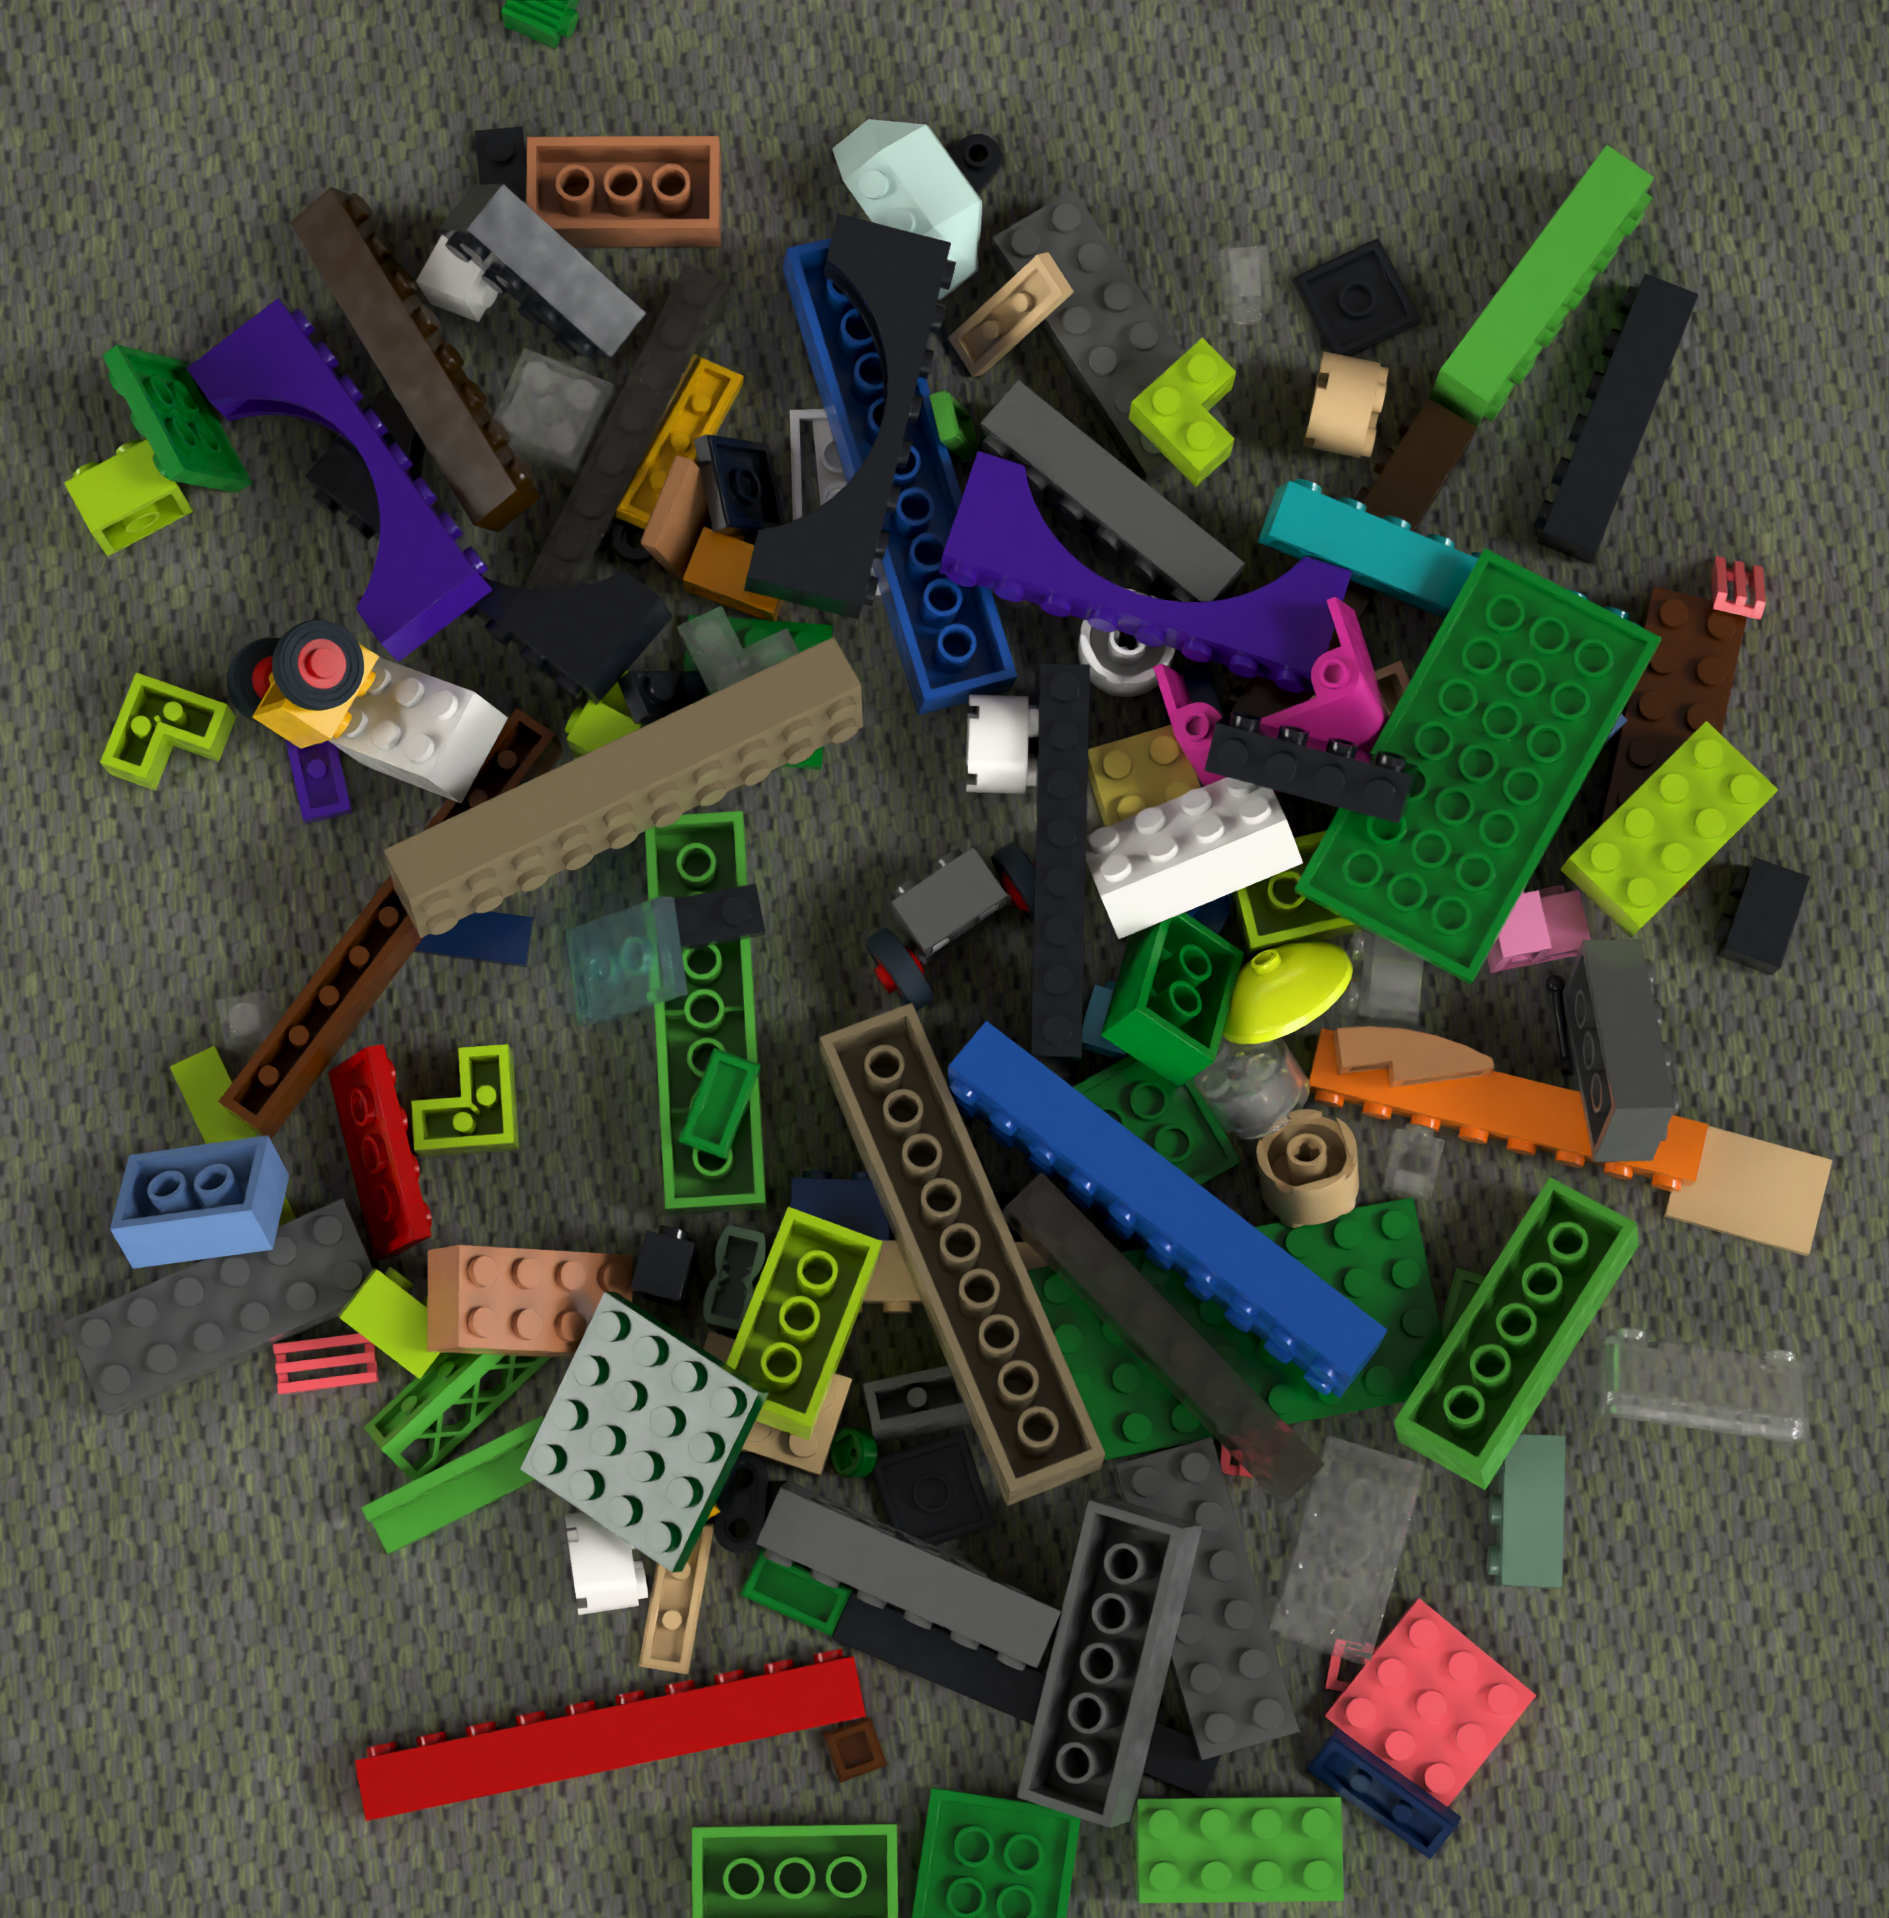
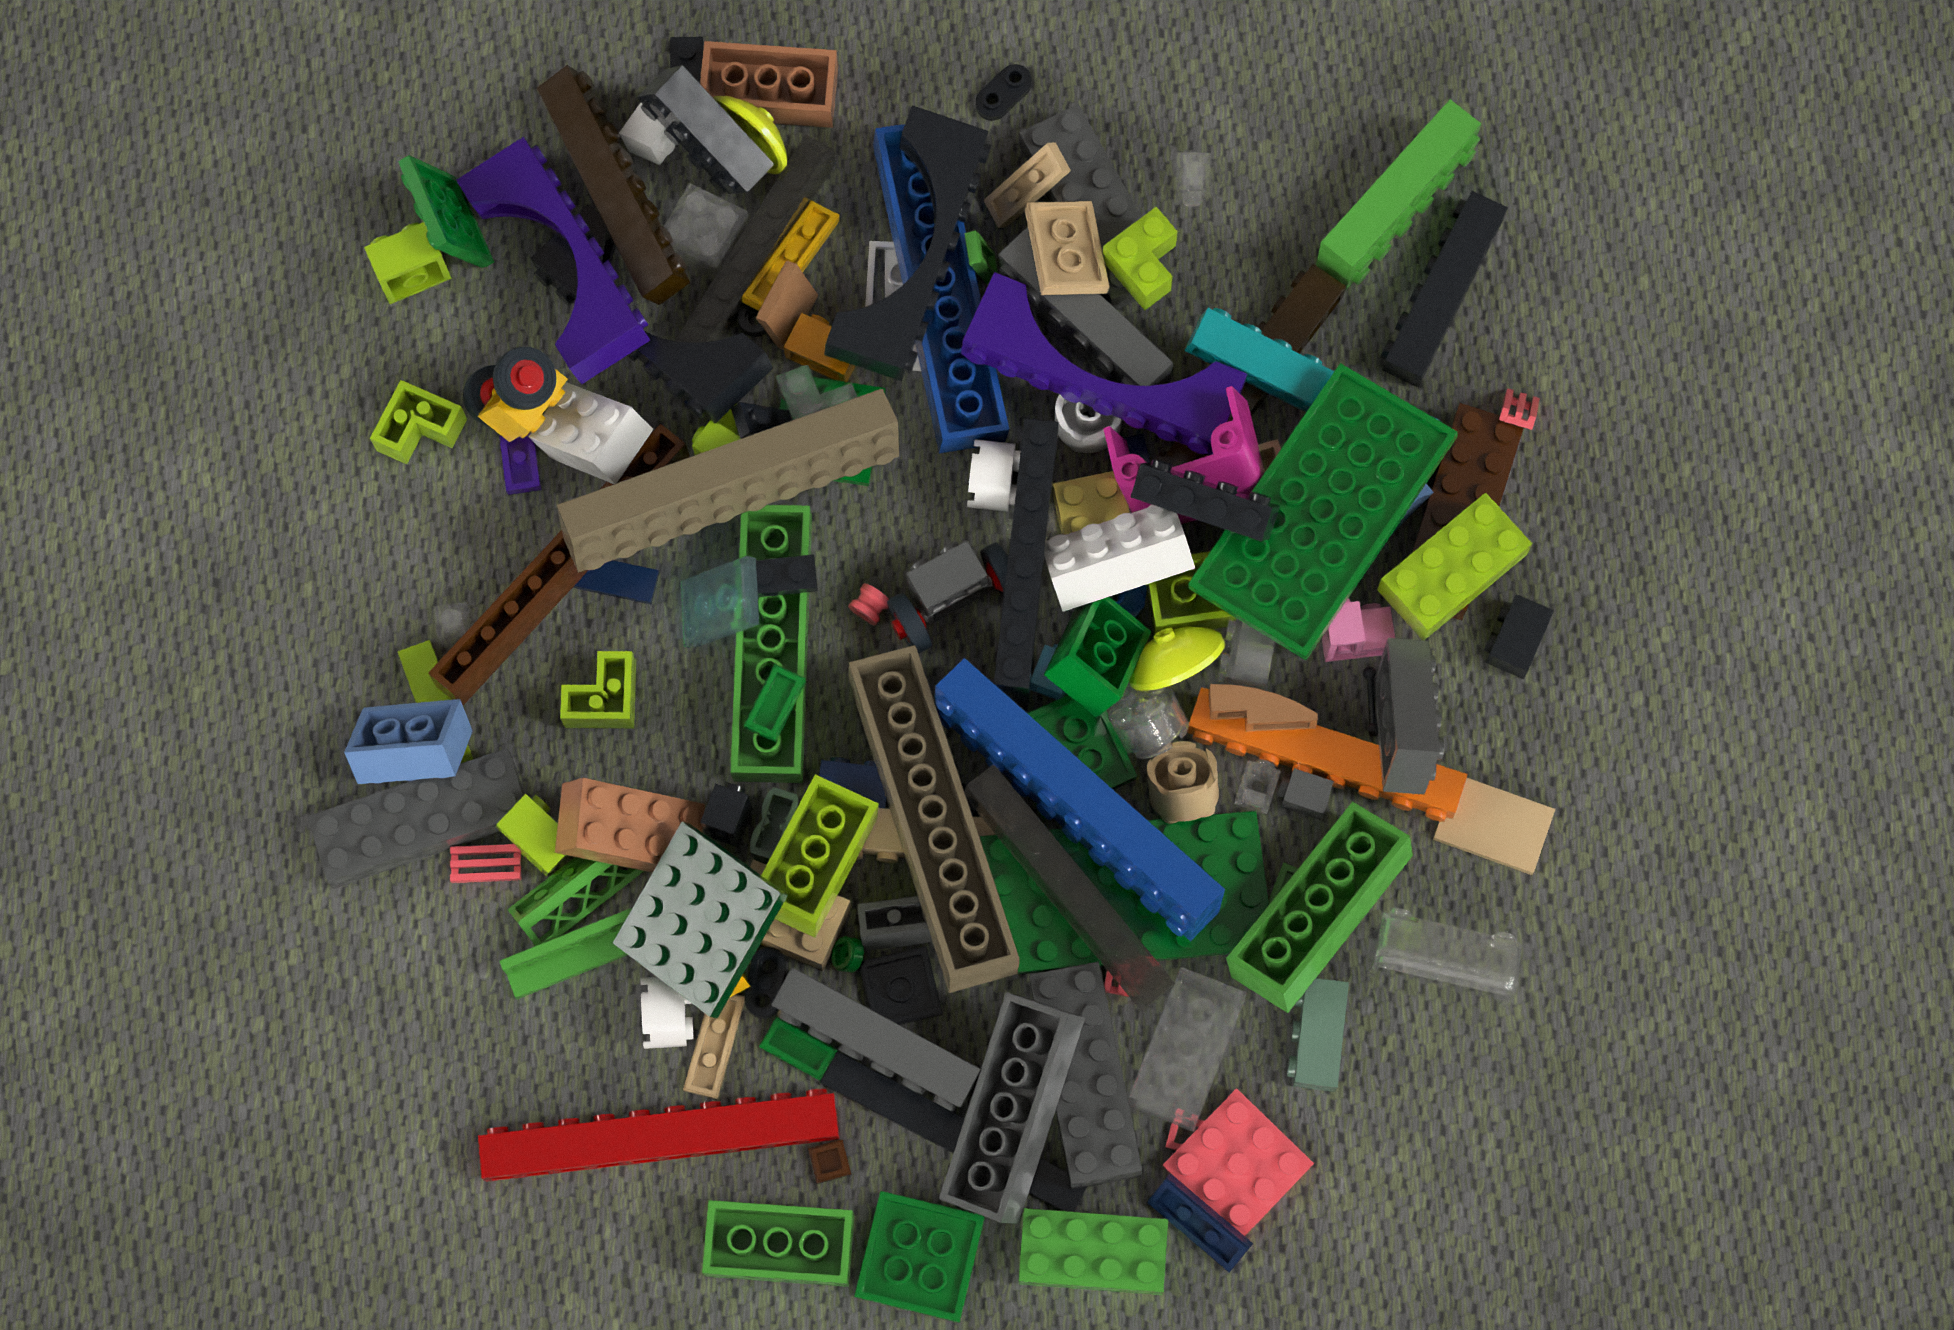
camera: 10 degrees right, 5 degrees down
(380, 1152) = (536, 719): red plate -> none
(618, 260) = (759, 127): none -> neon yellow dish
(739, 485) = (827, 284): black tile -> none
(839, 943) = (869, 604): none -> coral wheel
(914, 186) = (967, 90): light aqua wedge -> none
(1078, 406) = (1066, 248): none -> tan tile
(1346, 405) = (1252, 264): tan brick -> none
(1357, 300) = (1270, 196): black tile -> none
(1480, 1167) = (1305, 793): none -> dark grey brick

